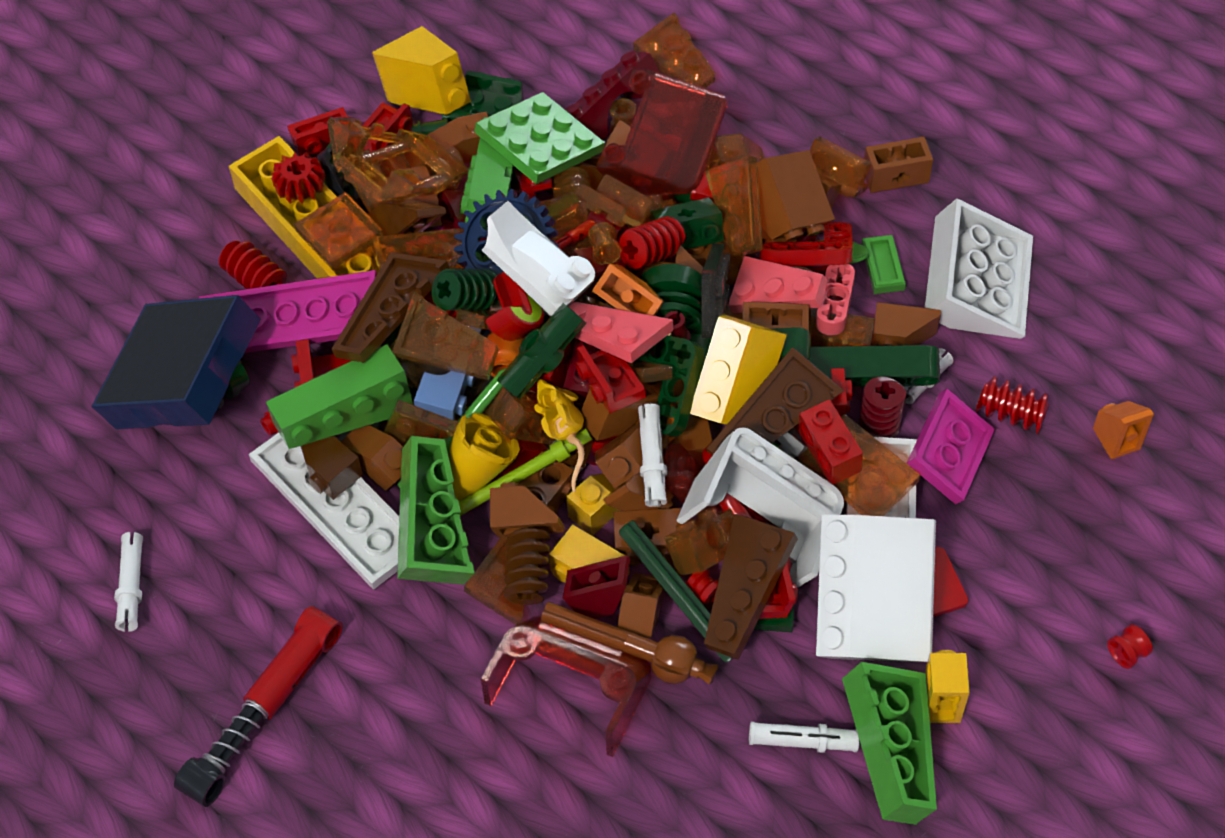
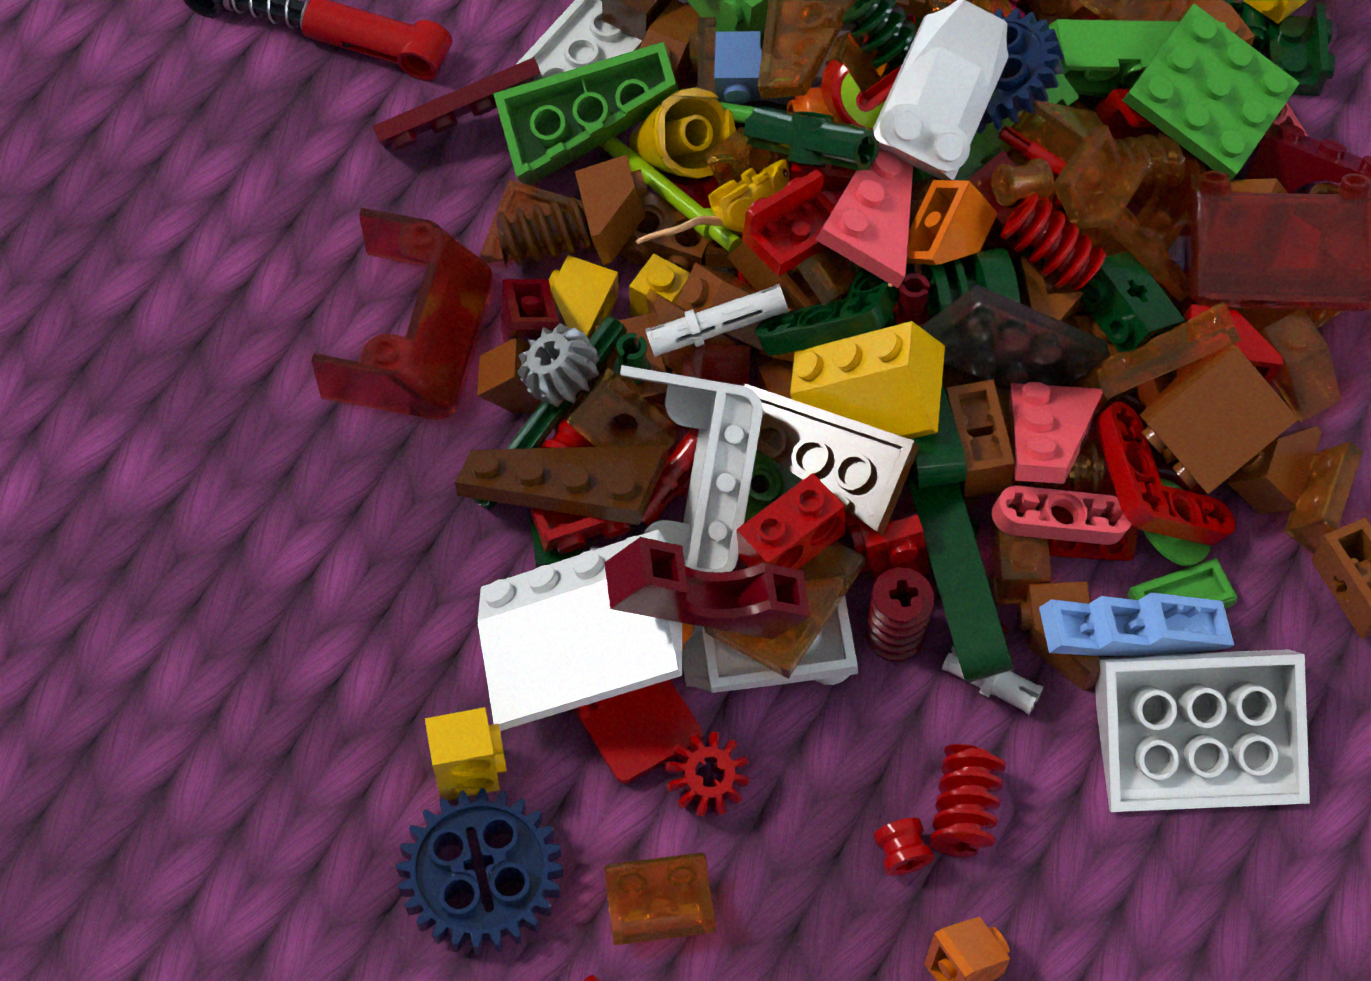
camera: 75 degrees right, 5 degrees up
(386, 597) = (442, 112): none -> dark red plate
(661, 577) = (558, 365): none -> light grey gear
(662, 519) = (631, 354): none -> dark green pin
(671, 658) = (453, 423): dark orange piece -> none
(804, 737) = (377, 621): white pin -> none
(885, 486) = (754, 601): none -> dark red arch
(895, 738) = (375, 701): bright green wedge -> none
(914, 284) = (1136, 627): none -> light blue slope
(950, 446) = (863, 717): dark pink plate -> none
(974, 546) = (721, 764): none -> red gear
(1024, 699) = (435, 881): none -> dark blue gear
(1038, 447) = (903, 846): none -> red wheel
(1059, 593) = (659, 898): none -> clear orange bracket

